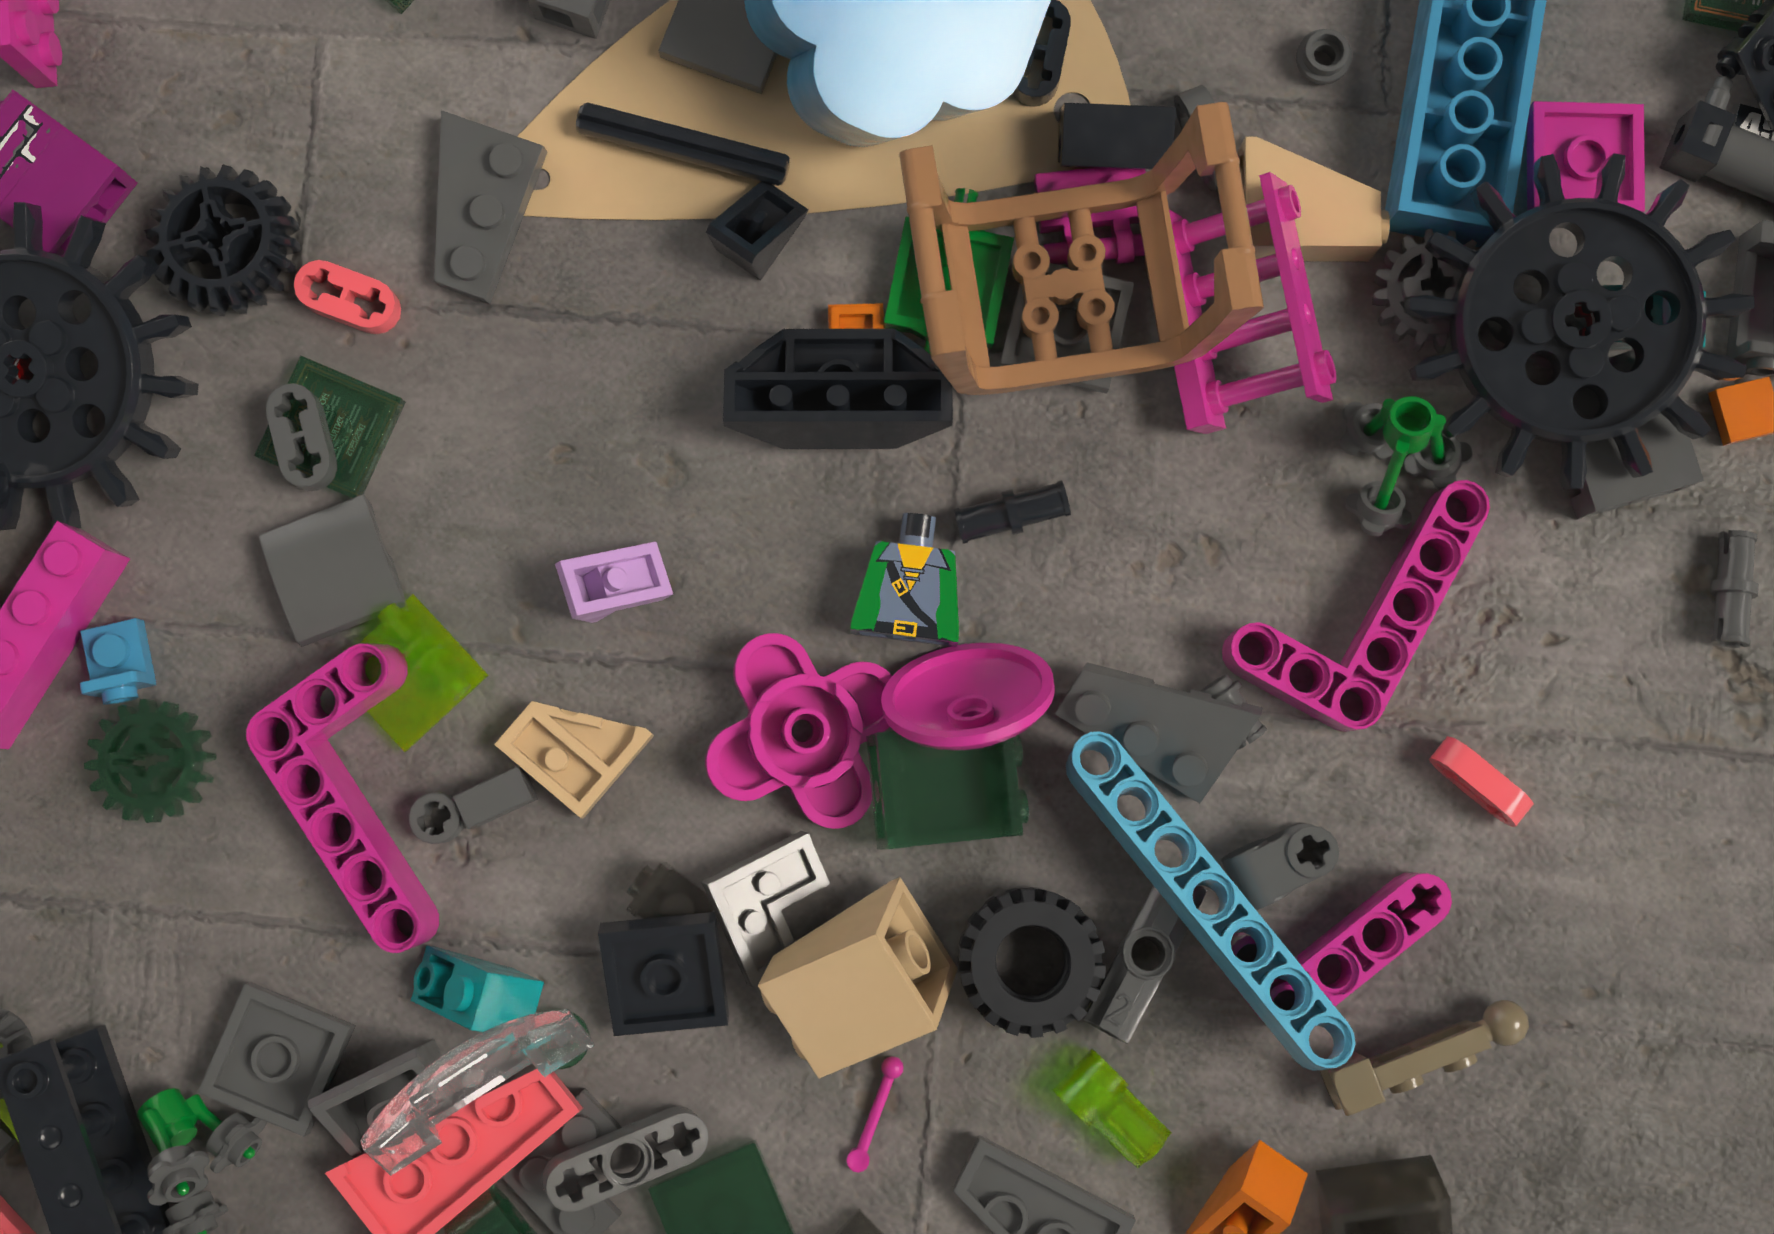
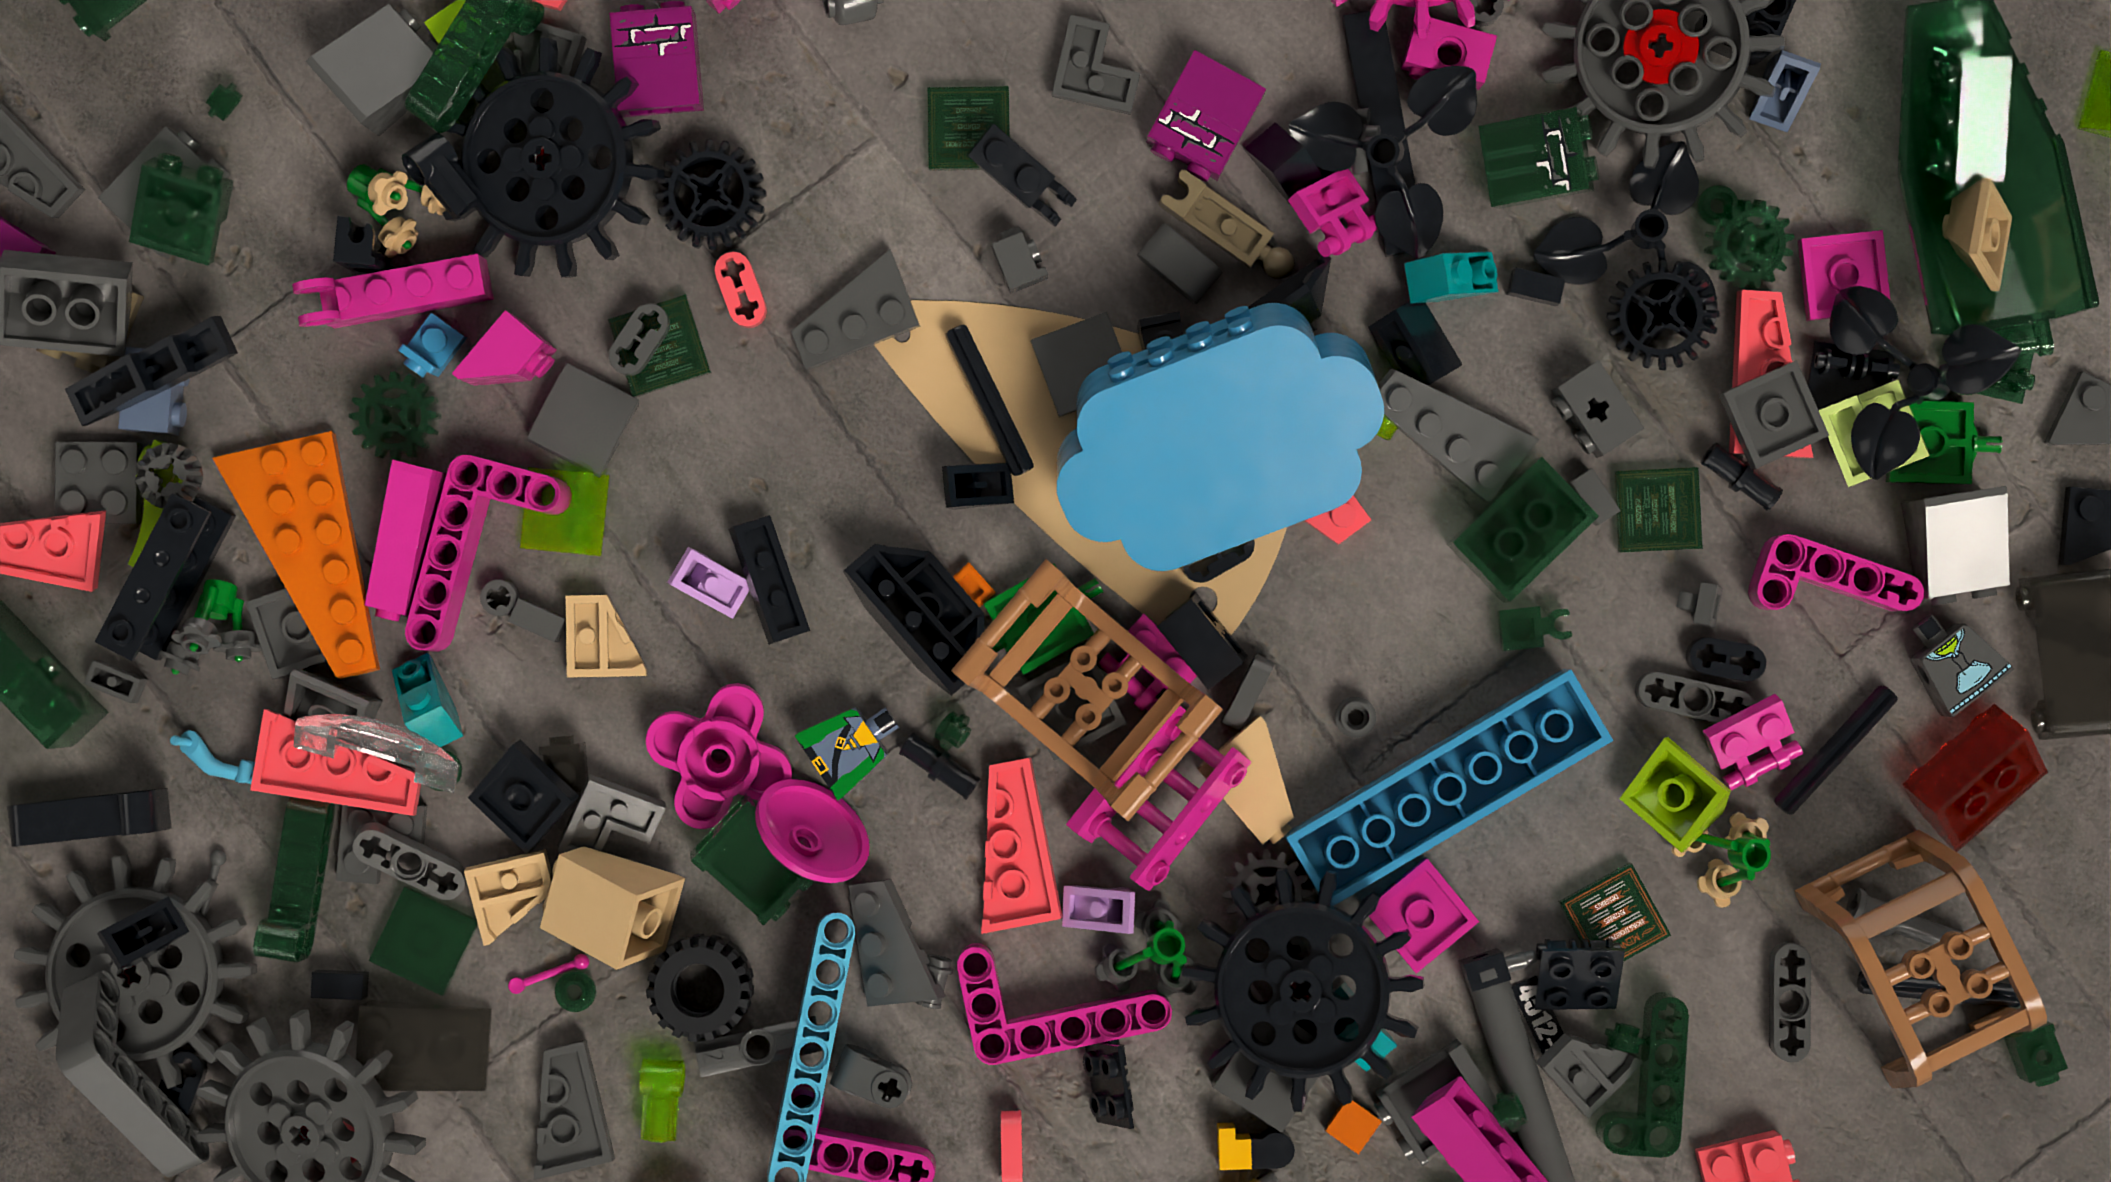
camera: 50 degrees right, 5 degrees up
(176, 958) = (305, 525): none -> orange wing
(188, 584) = (506, 354): none -> dark pink slope
(276, 858) = (403, 537): none -> dark pink slope
(666, 520) = (769, 579): none -> black plate
(749, 1080) = (507, 890): none -> tan wing
(918, 1082) = (587, 986): none -> clear green plate
(988, 466) = (953, 730): none -> clear green plate
(1177, 514) = (1019, 866): none -> coral wing
(1305, 470) = (1099, 908): none -> lavender slope
(1503, 616) = (1110, 1095): none -> black hinge
(1698, 524) = (1253, 1150): none -> leg

